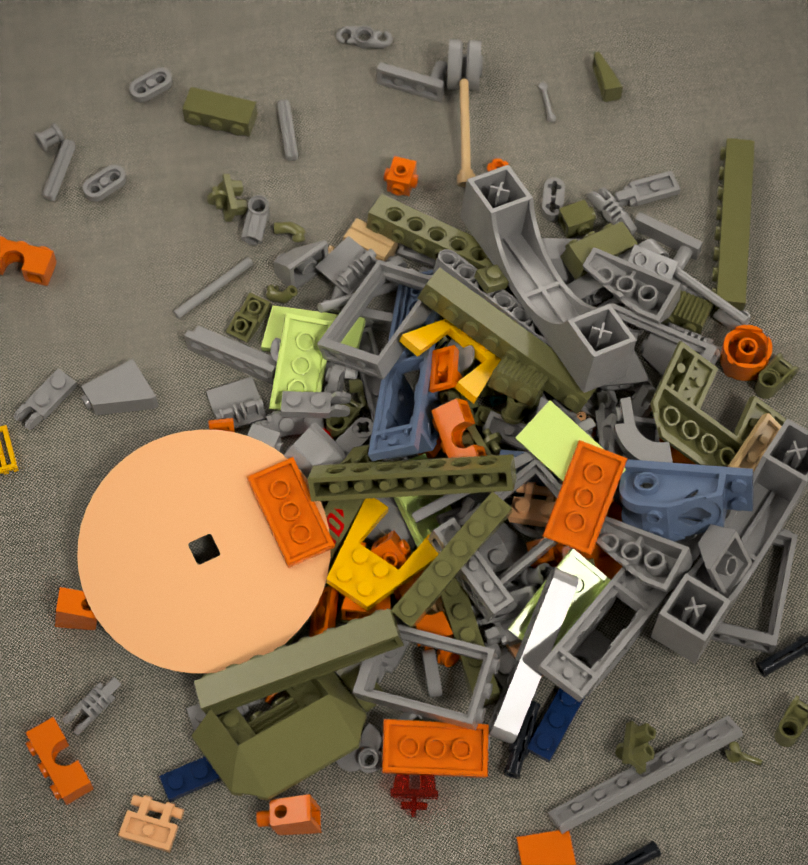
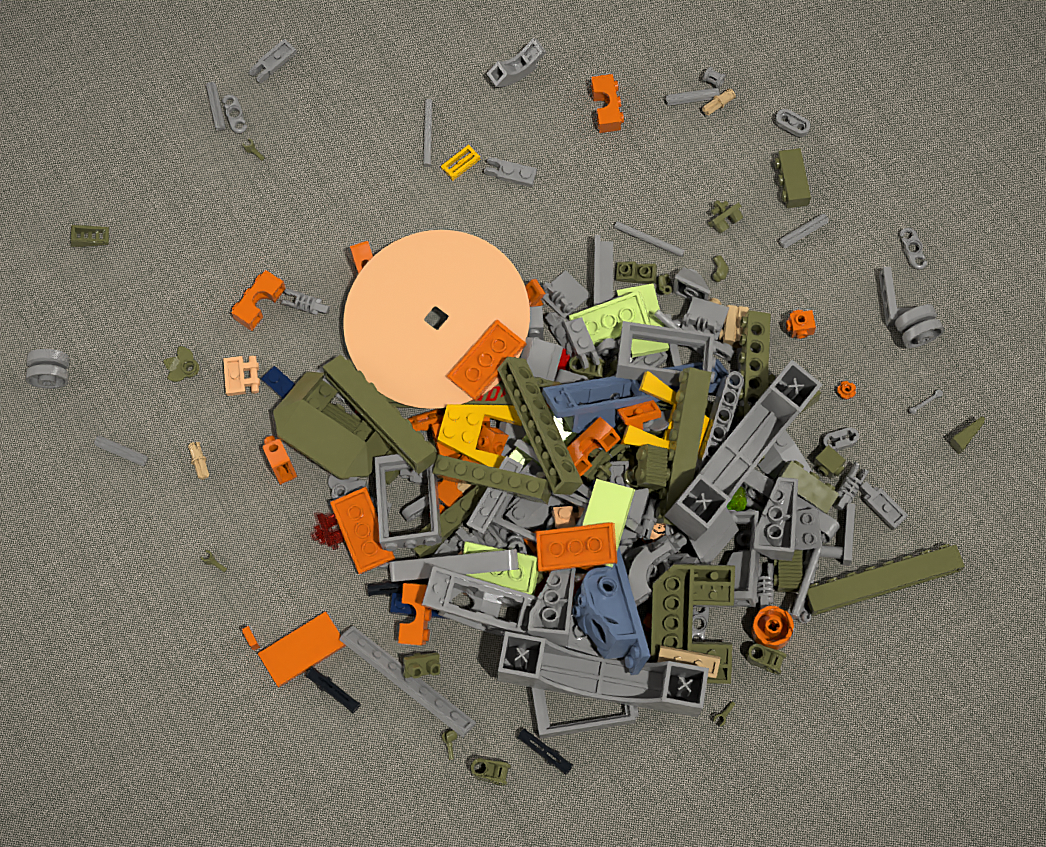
camera: 70 degrees right, 5 degrees up
(82, 145) = (719, 101): none -> tan axle
(103, 183) = (697, 129): light grey plate -> none
(119, 391) = (538, 214): light grey slope -> none
(256, 221) = (713, 242): light grey piece -> none
(466, 171) = (827, 369): tan piece -> none
(491, 279) = (731, 416): olive plate -> none
(590, 736) = (416, 631): none -> orange arch
(724, 558) = (578, 666): light grey slope -> none

